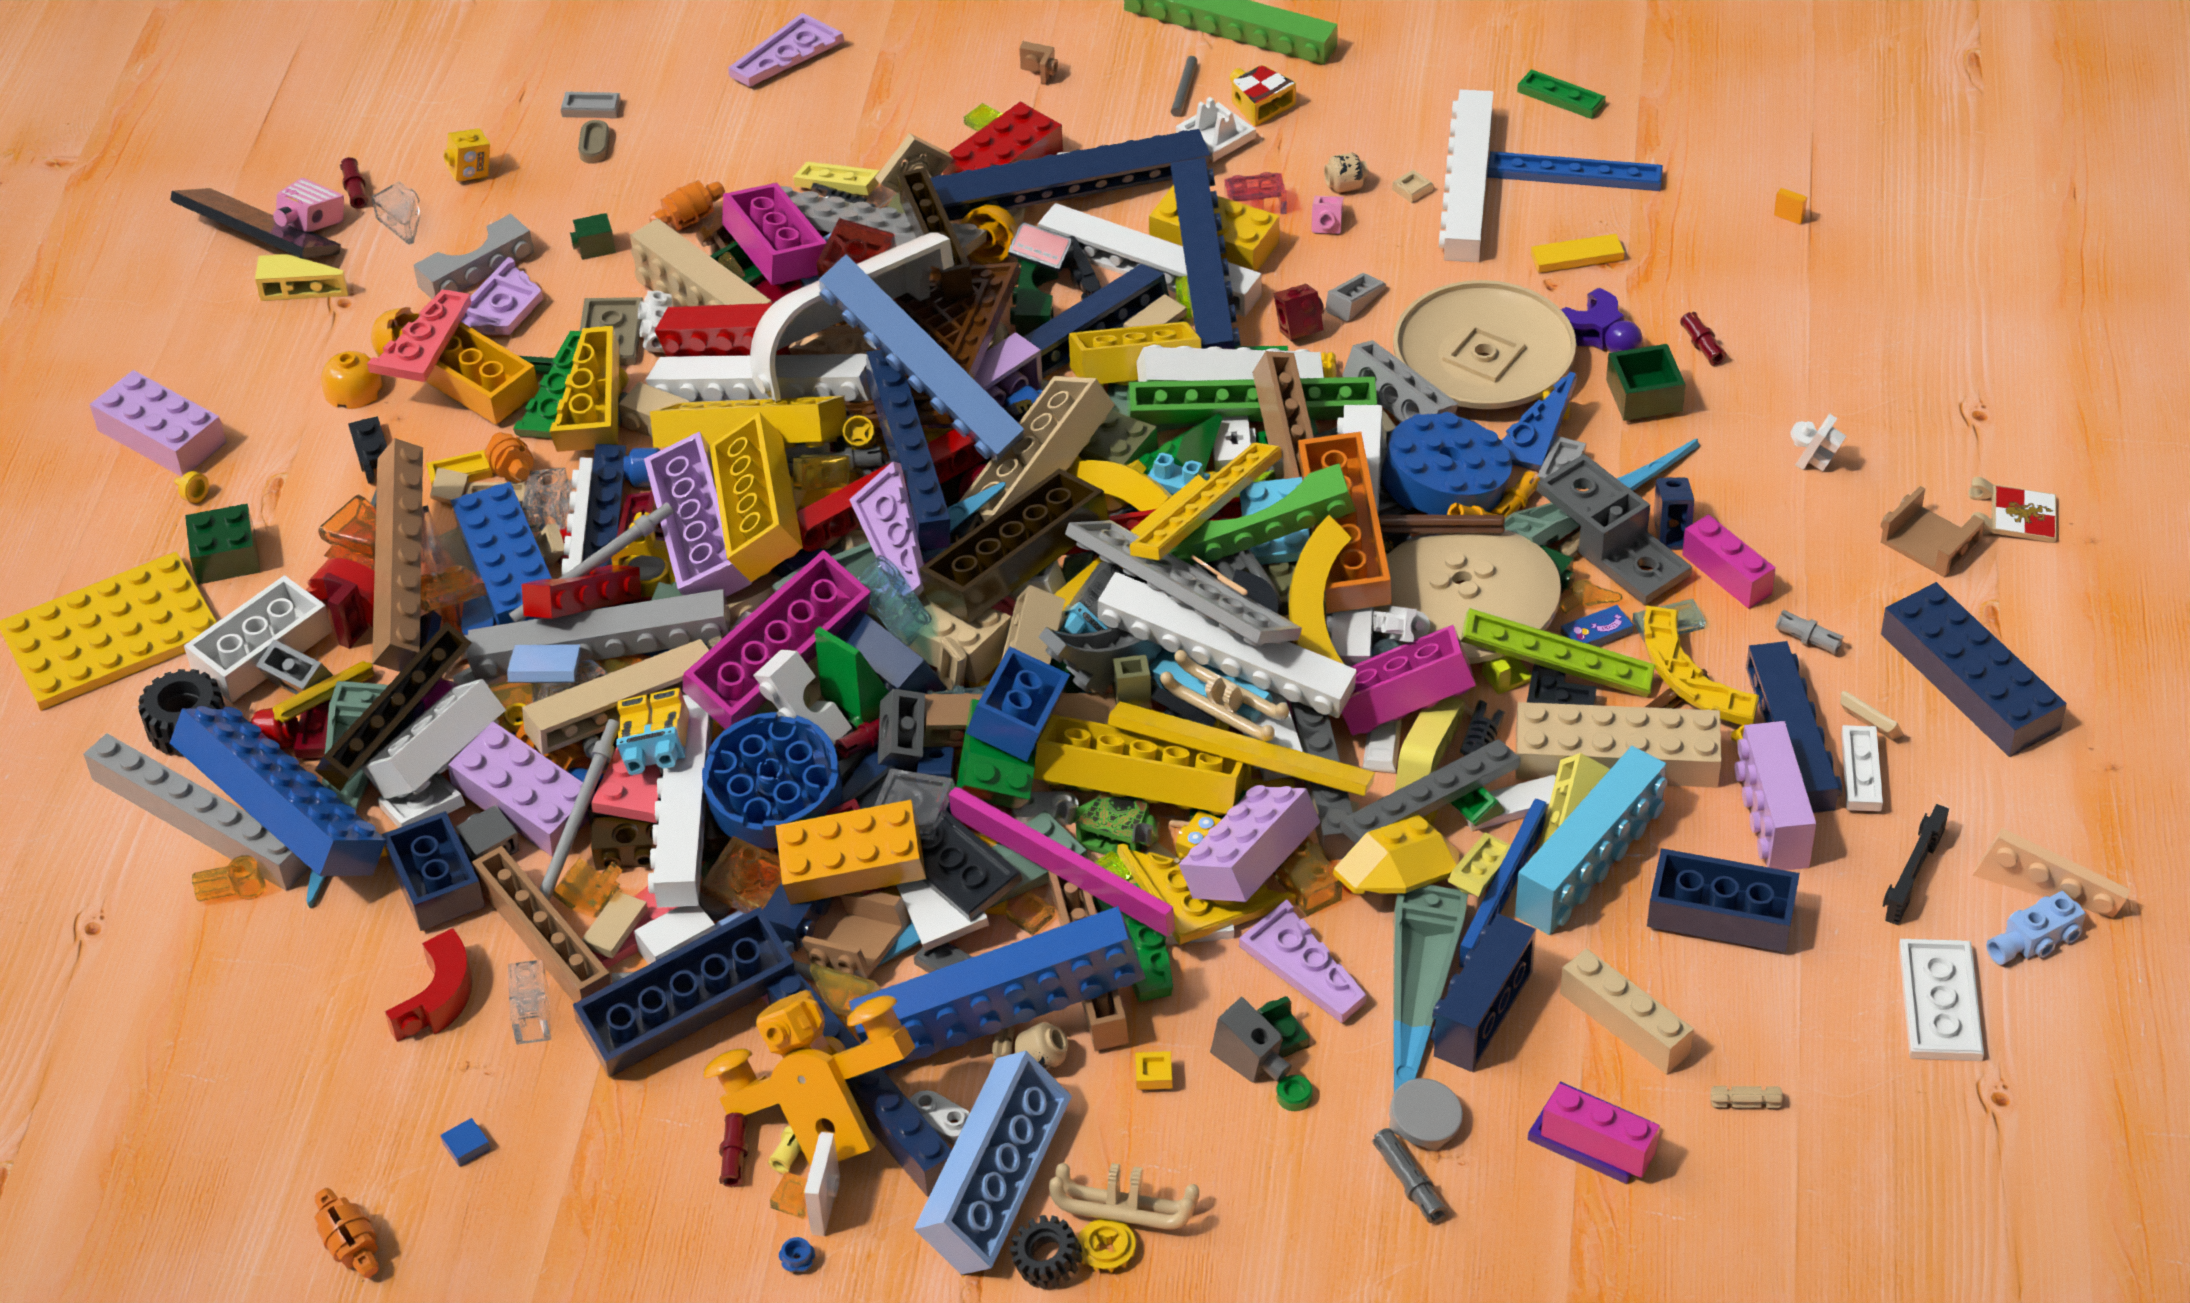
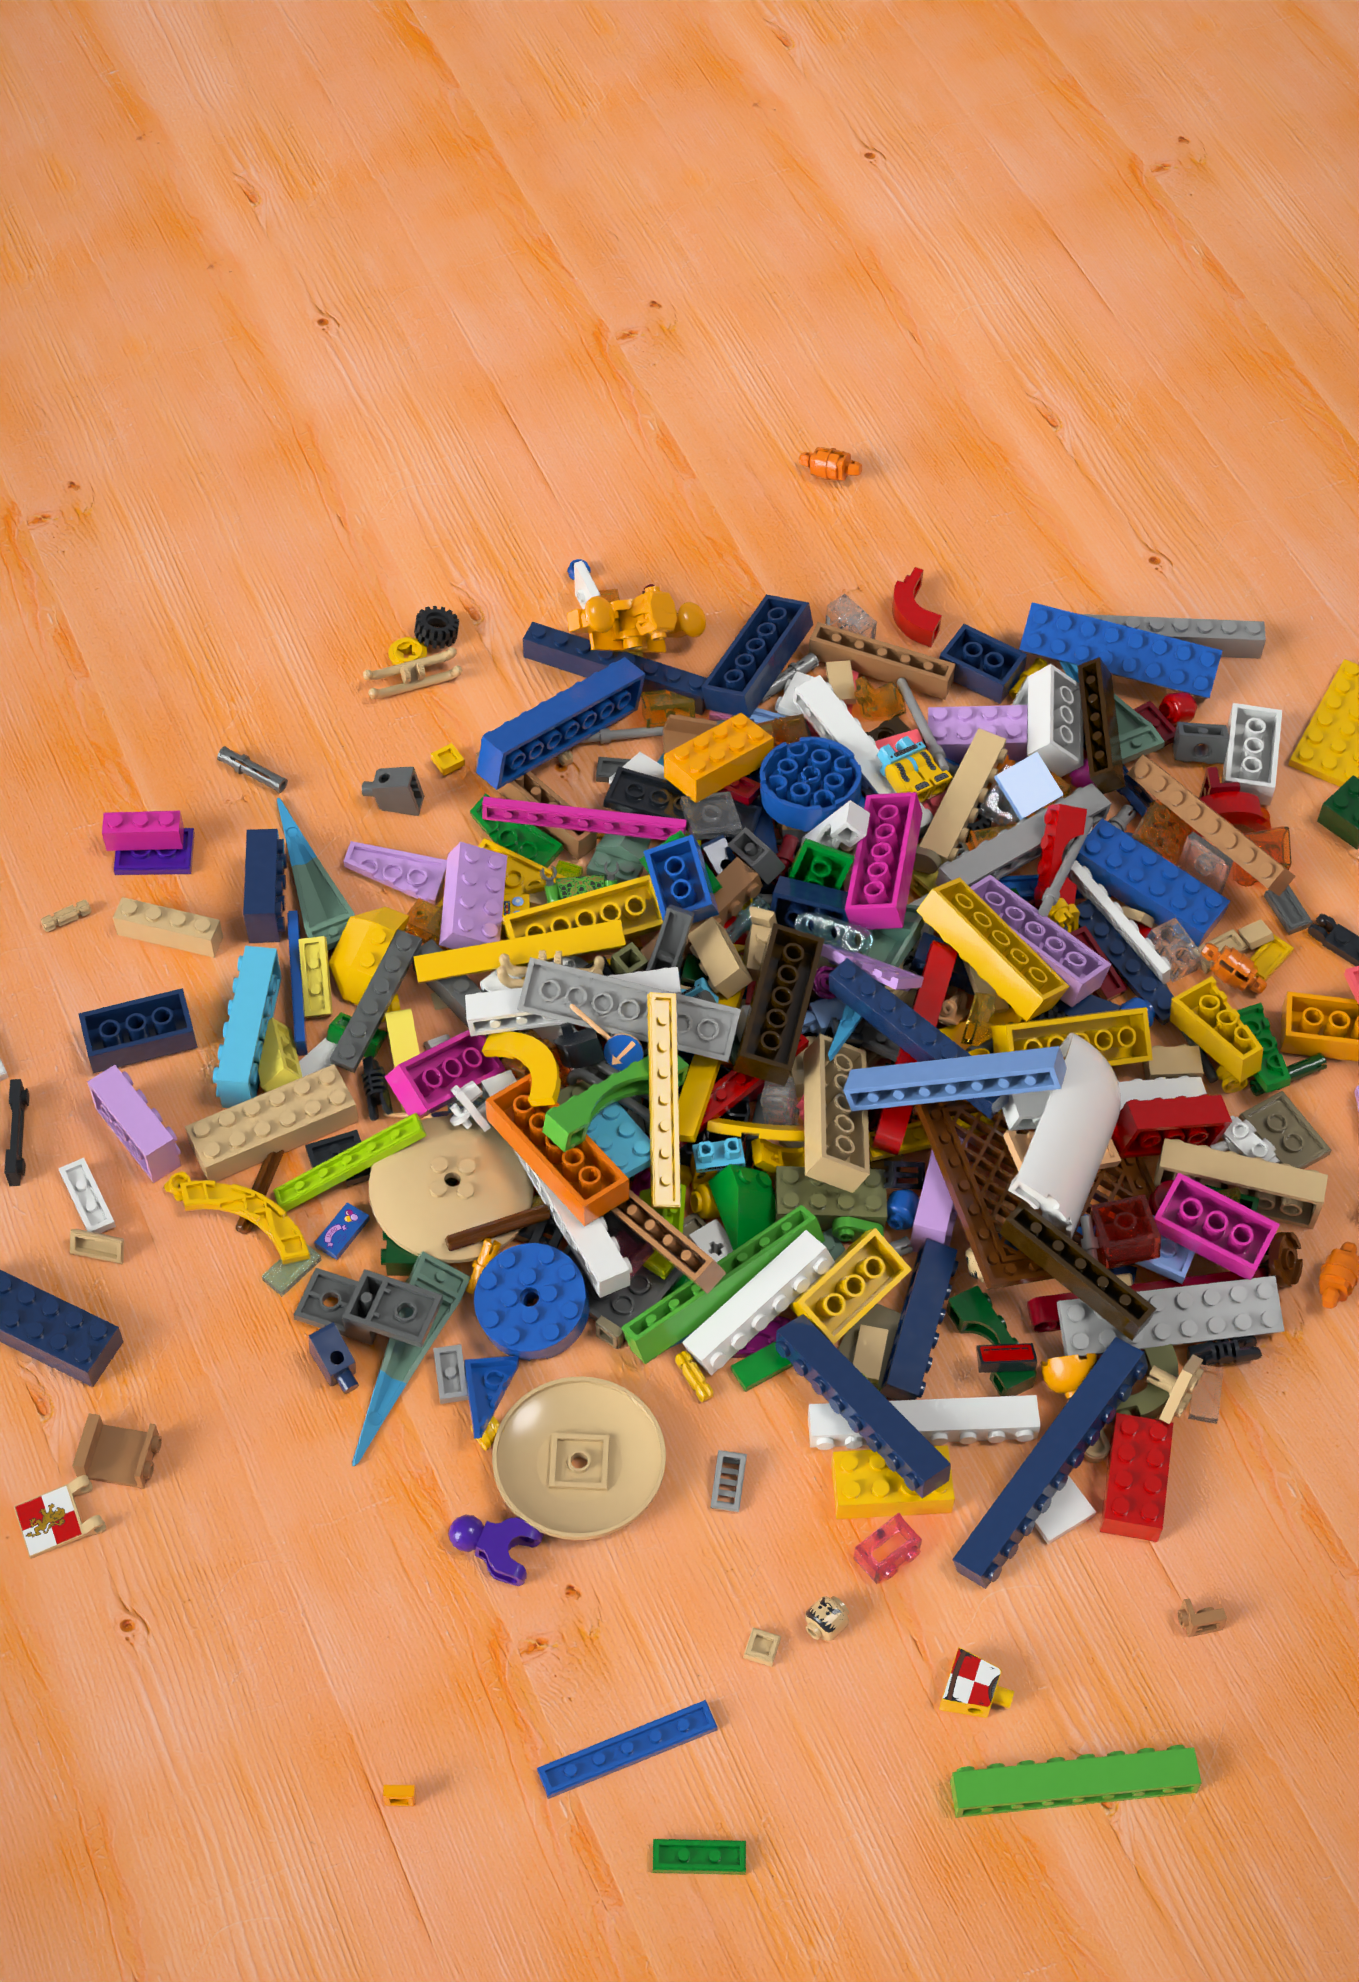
camera: 145 degrees right, 10 degrees up
(167, 696) = (1243, 673): black tyre -> none
(239, 877) = (1105, 605): clear yellow piece -> none
(320, 692) = (1169, 732): yellow axle -> none
(465, 1142) = (817, 545): blue tile -> none
(486, 832) = (973, 695): dark grey head -> none
(844, 178) = (1247, 1371): light yellow plate -> none
(940, 1113) = (556, 679): white plate -> none
(980, 117) = (1195, 1528): clear neon green tile -> none
(993, 1163) = (497, 646): light blue brick -> none
(1082, 272) = (965, 1374): black hinge -> none
(1184, 86) = (1053, 1671): dark grey bar -> none
(1220, 128) = (978, 1615): white plate -> none
(1280, 1017) = (385, 822): dark green bracket -> none
(1294, 1093) = (353, 791): green tile -> none
(1299, 311) = (754, 1414): dark red head -> none
(1327, 214) = (813, 1564): bright pink bracket -> none
(1397, 385) = (620, 1371): light grey brick -> none
(1425, 1113) = (262, 805): light grey tile -> none
(1467, 176) = (718, 1680): white brick -> none
(1517, 497) = (467, 1322): light orange pin -> none
(1577, 253) = (567, 1636): yellow tile -> none
(1588, 594) = (364, 1257): clear yellow animal -> none
(1645, 382) = (421, 1484): dark green piece -> none
(1703, 338) = (402, 1580): dark red pin -> none
(1728, 561) = (266, 1333): dark pink brick -> none
(1784, 698) = (152, 1205): dark blue brick -> none
(1805, 435) = (245, 1485): white hips -> none
(1809, 632) = (176, 1303): light grey pin -> none

